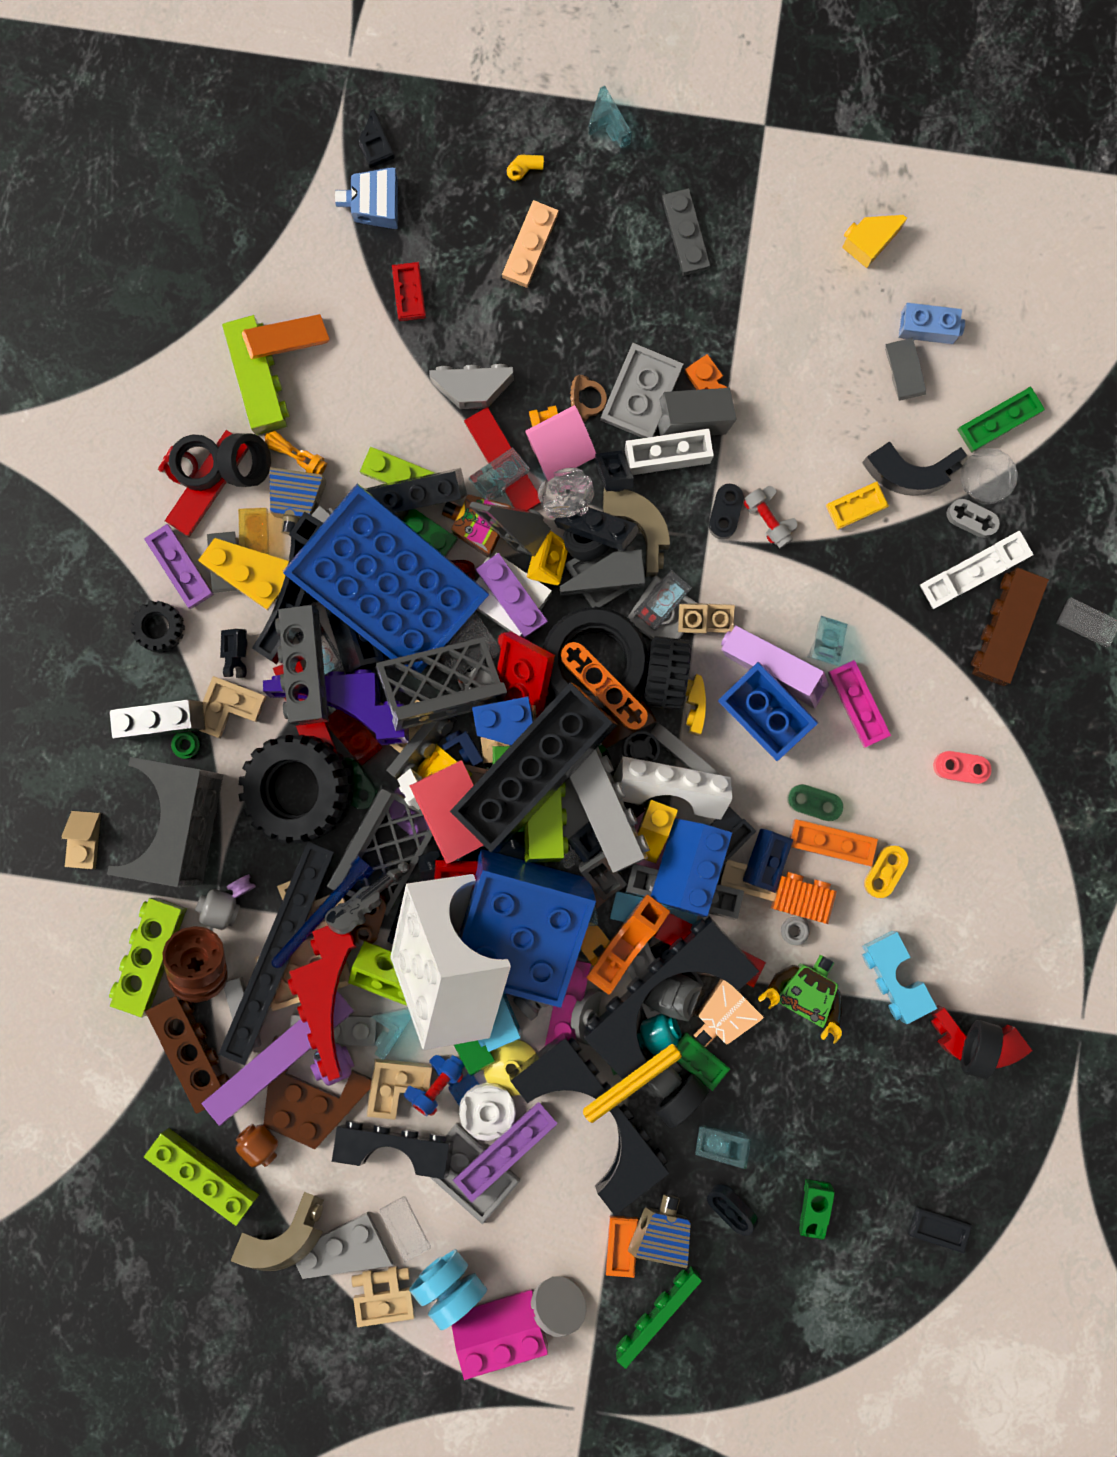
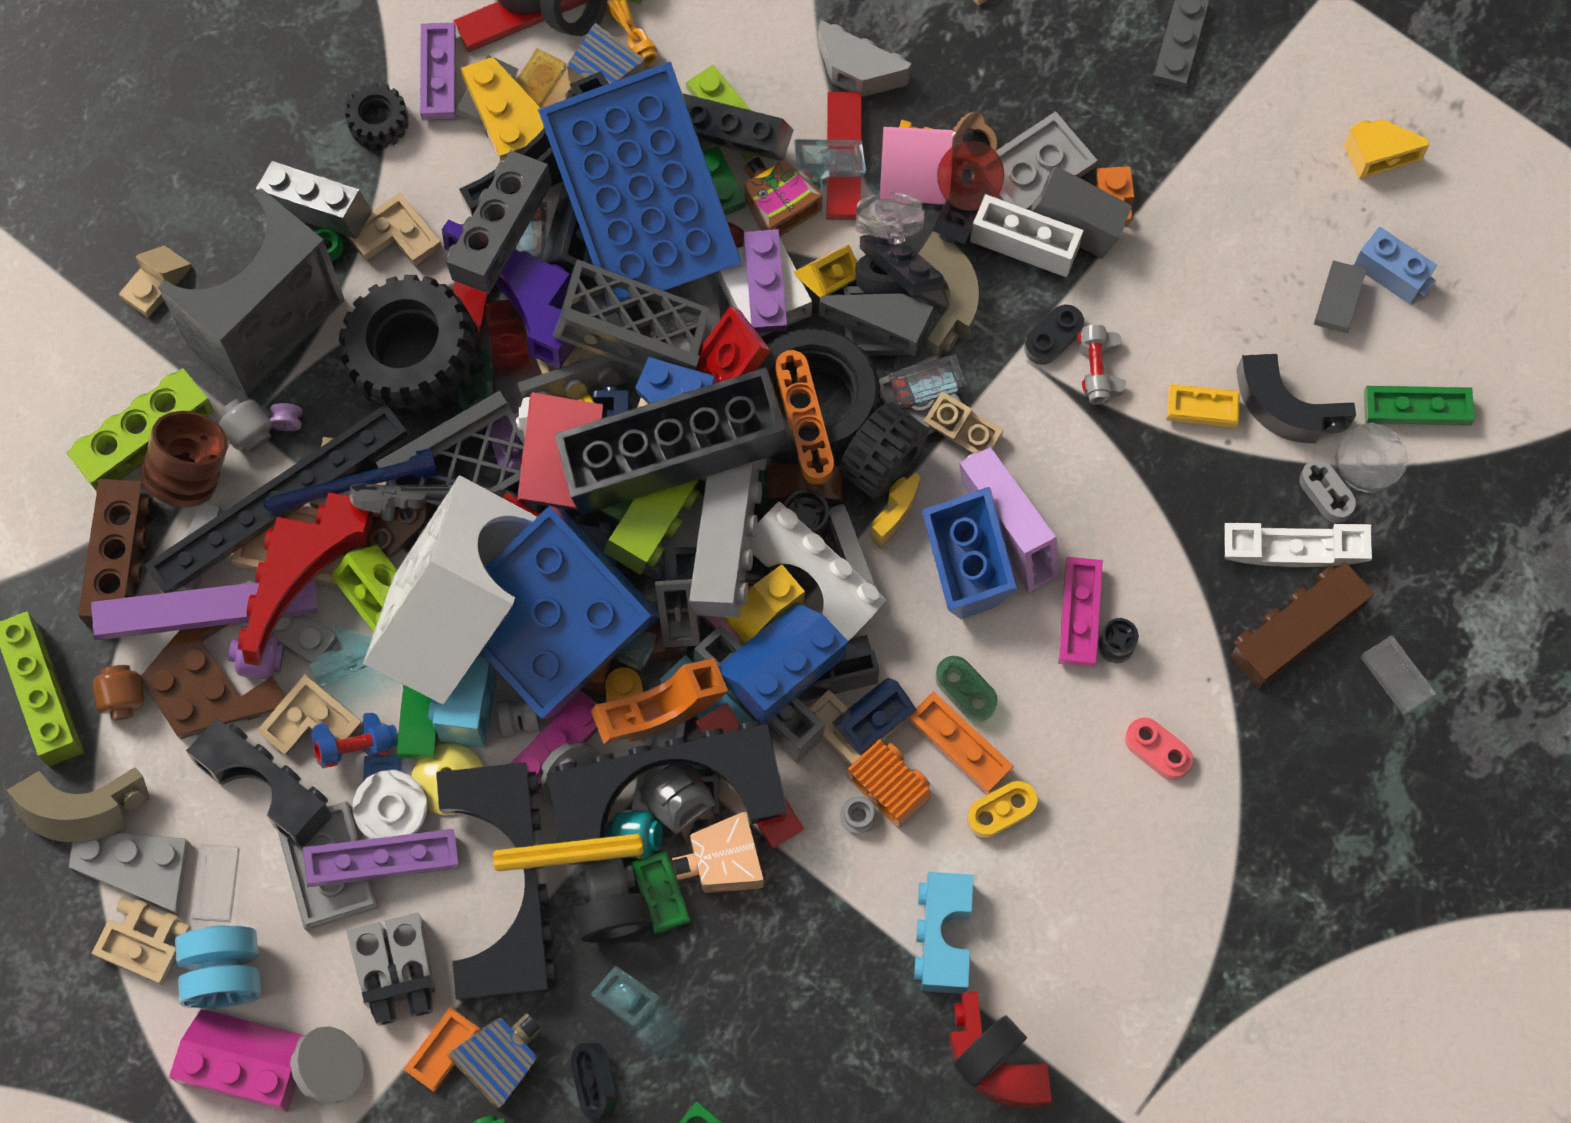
camera: 30 degrees right, 15 degrees down
(233, 648) = (439, 178): black plate -> none
(519, 528) = (816, 219): dark grey slope -> none
(566, 1221) = (396, 979): none -> light grey hips
(615, 430) = (986, 174): none -> clear red dish
(809, 995) = (829, 888): torso -> none
(828, 641) = (1083, 525): clear light blue slope -> none
(899, 706) = (1122, 634): none -> black wheel

